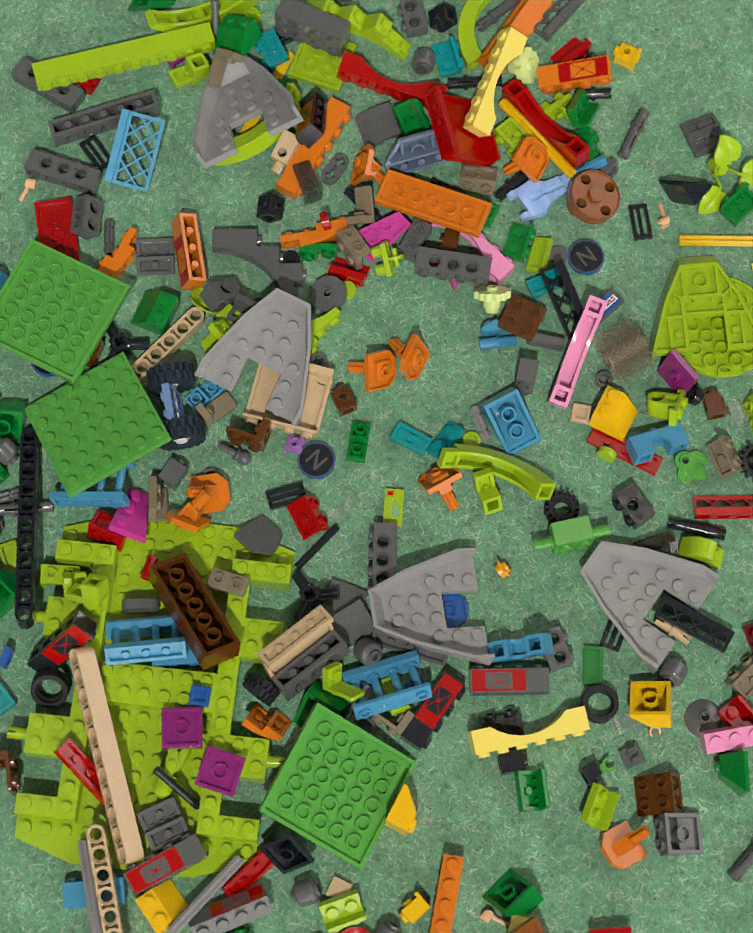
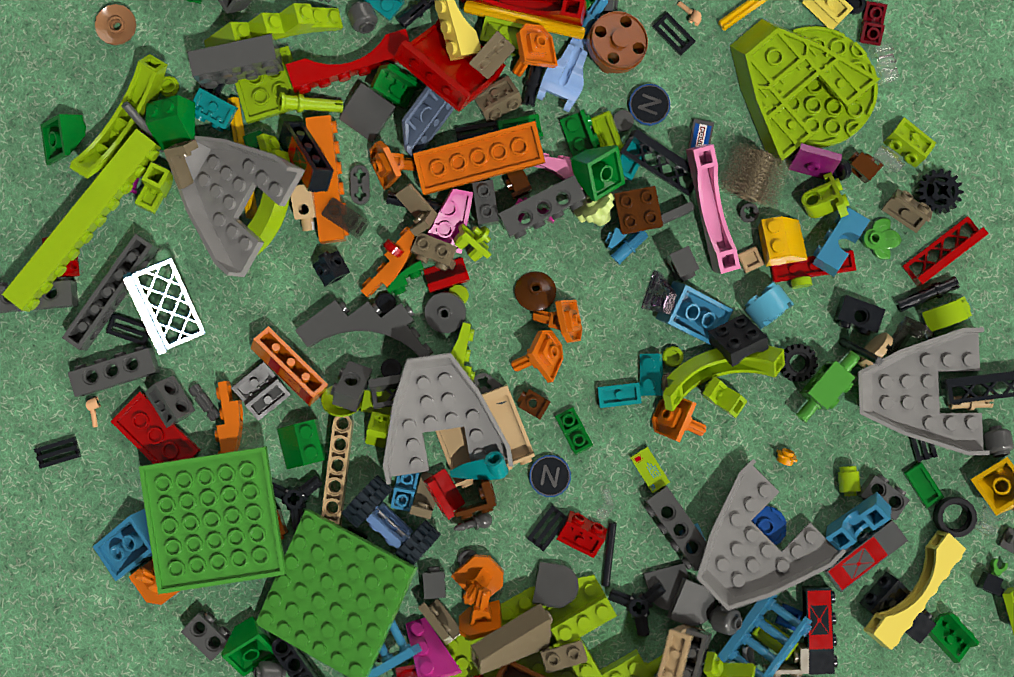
camera: 30 degrees left, 15 degrees up
(201, 543) = (513, 641): none -> dark tan slope
(230, 413) = (444, 493): none -> red panel
(279, 415) = (490, 468): none -> teal piece
(297, 449) = (526, 478): medium lavender plate -> none
(335, 85) = (301, 103): none -> lime pin
(403, 331) = (539, 299): none -> reddish brown dish
(480, 423) = (668, 334): light grey axle -> none
(493, 388) = (659, 295): none -> wing
(495, 142) = (492, 55): none -> dark tan bracket
(512, 269) = (598, 171): none -> green slope
(528, 455) = (738, 339): none -> black brick
(537, 619) = (849, 480): none -> lime brick
(568, 450) = (768, 306): none -> medium azure brick
(613, 526) = (861, 351): none -> black bar
(626, 535) = (876, 346): none -> tan tile

